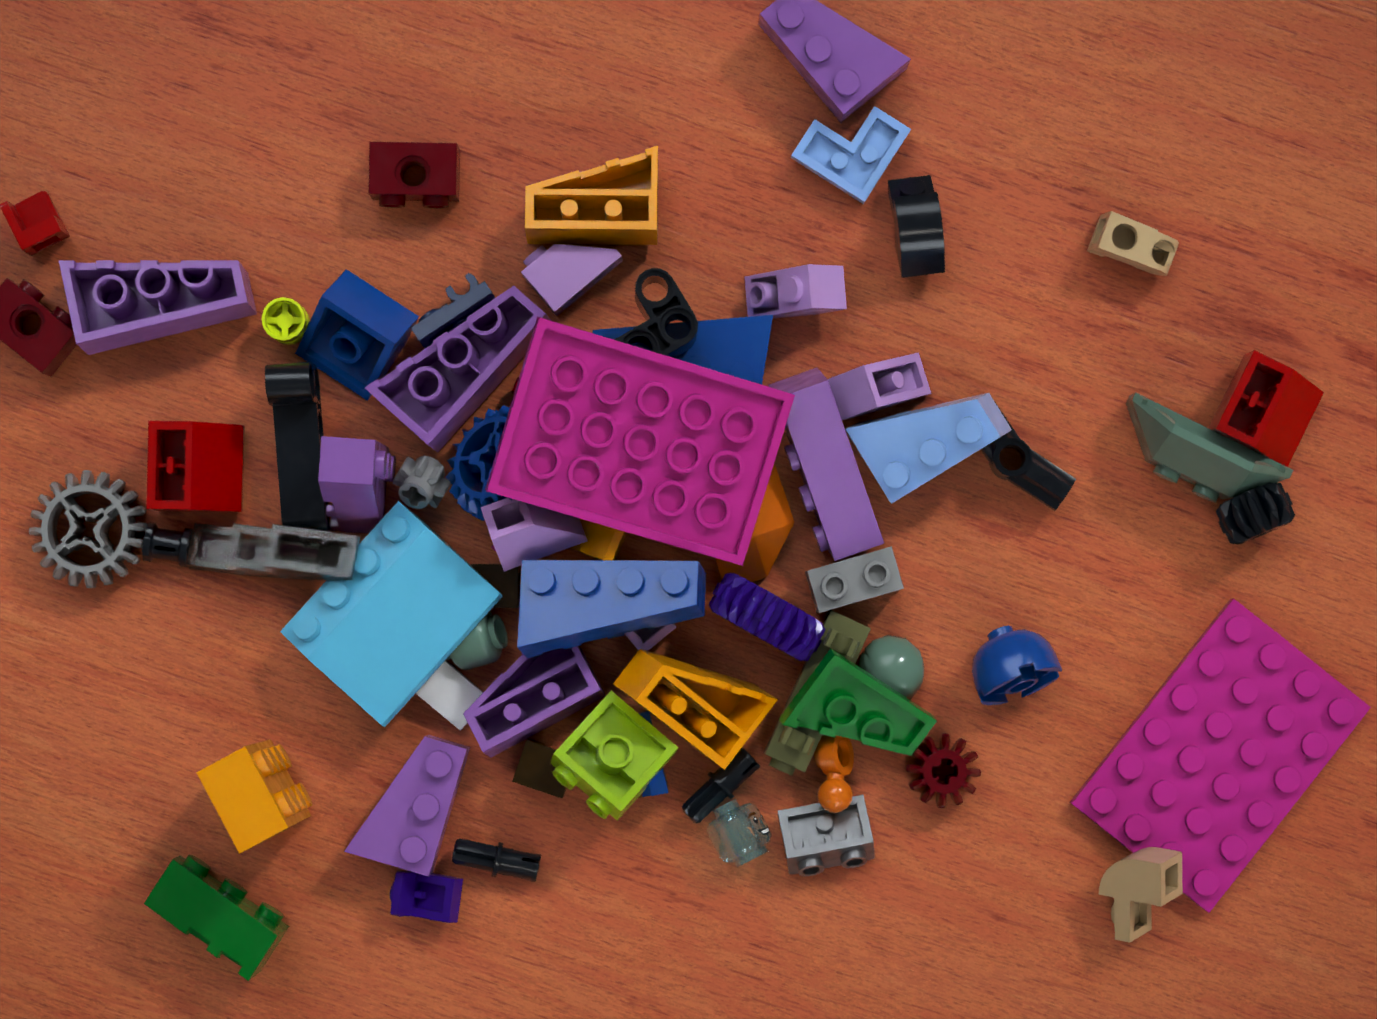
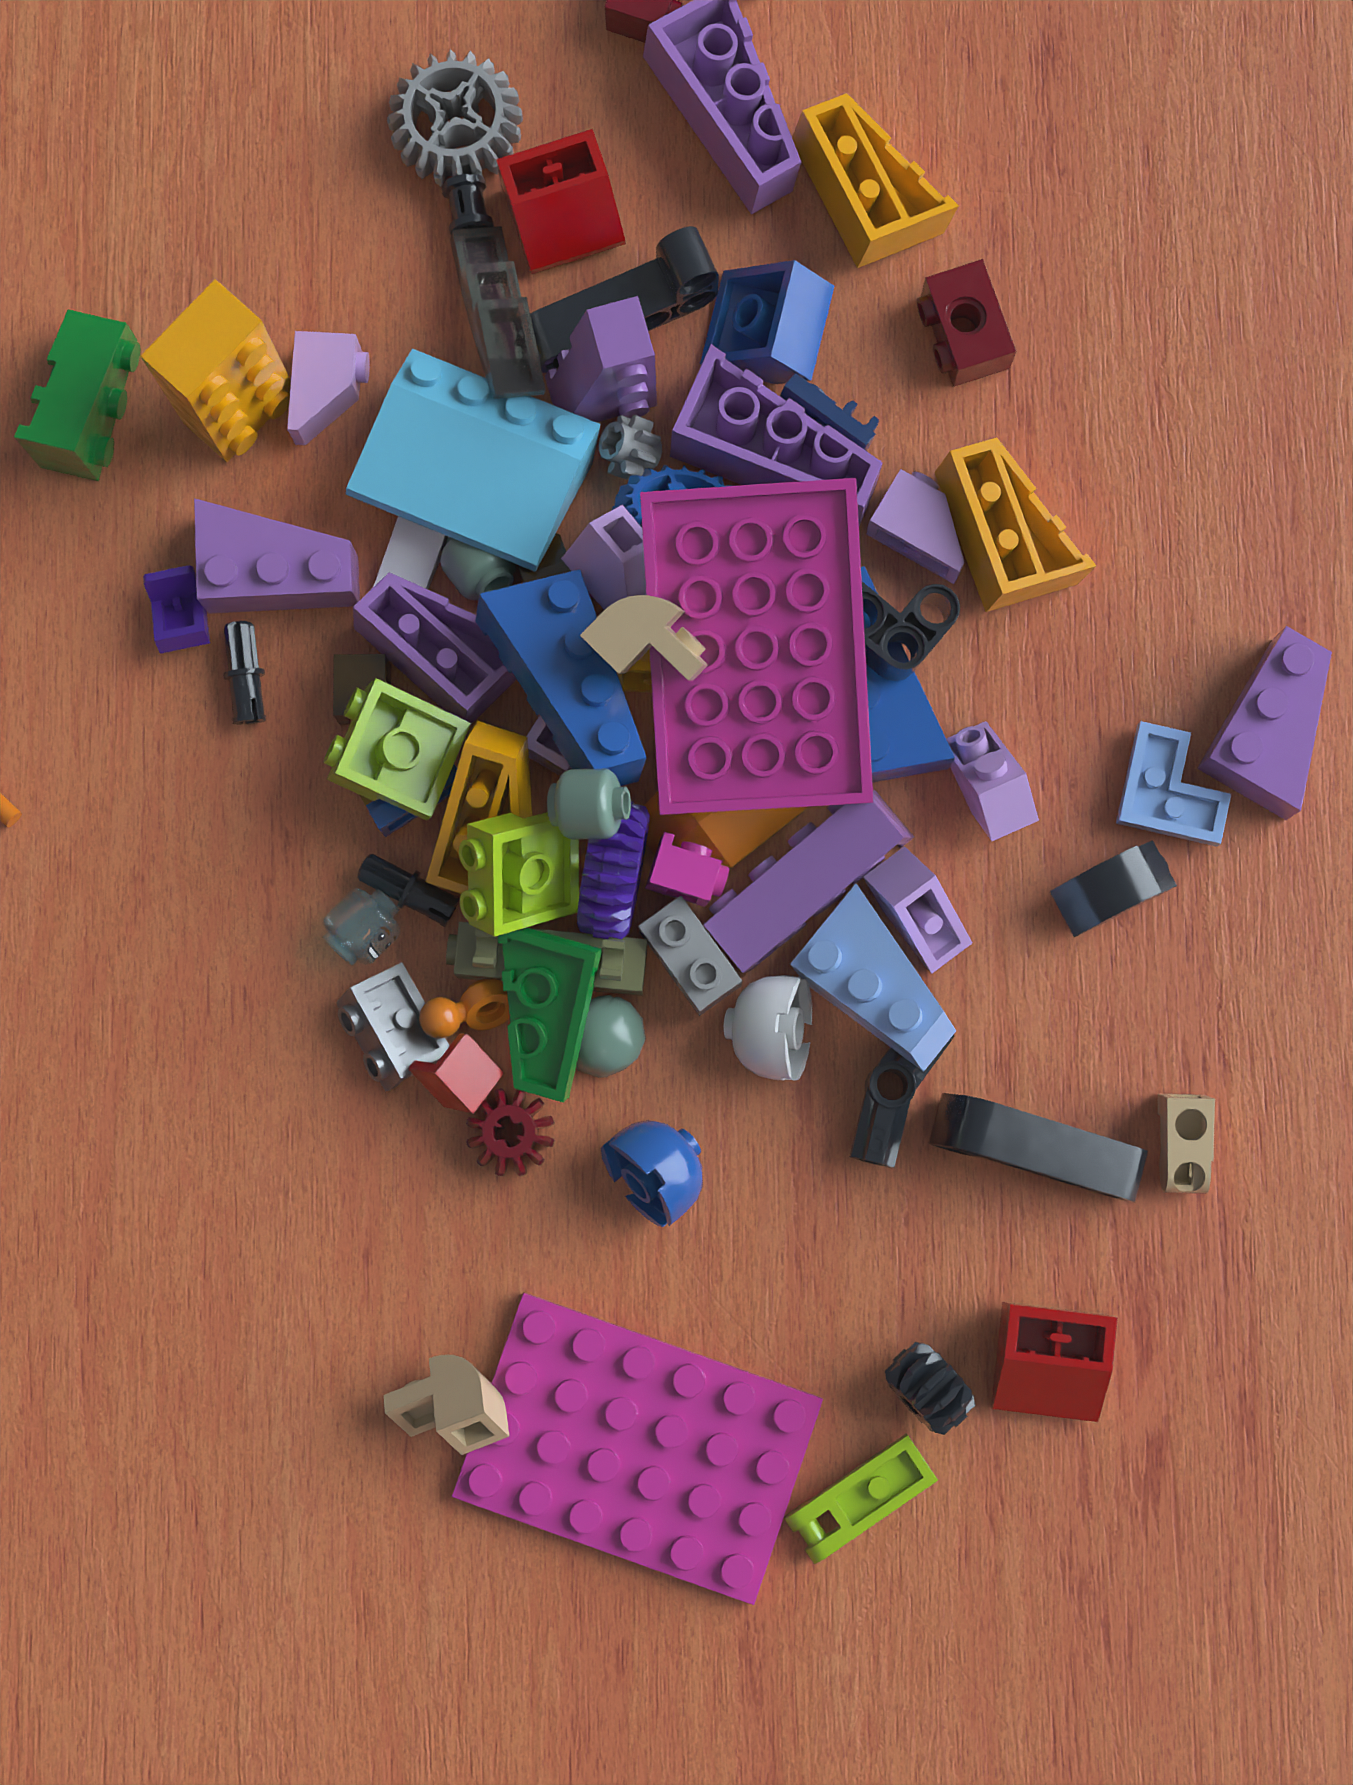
camera: 75 degrees right, 5 degrees down
(269, 212) = (866, 184): none -> light orange wedge
(275, 712) = (323, 381): none -> lavender slope
(278, 319) = (753, 233): neon yellow wheel -> none
(594, 532) = (637, 624): none -> tan brick
(720, 619) = (588, 804): none -> sand green head
(748, 691) = (518, 873): none -> lime plate
(788, 559) = (686, 872): none -> dark pink brick
(889, 793) = (460, 1076): none -> panel
(932, 536) = (770, 1026): none -> white cylinder
(1099, 361) = (1038, 1146): none -> black beam
(1198, 454) = (973, 1300): sand green wedge -> none
(1318, 595) = (862, 1497): none -> lime plate

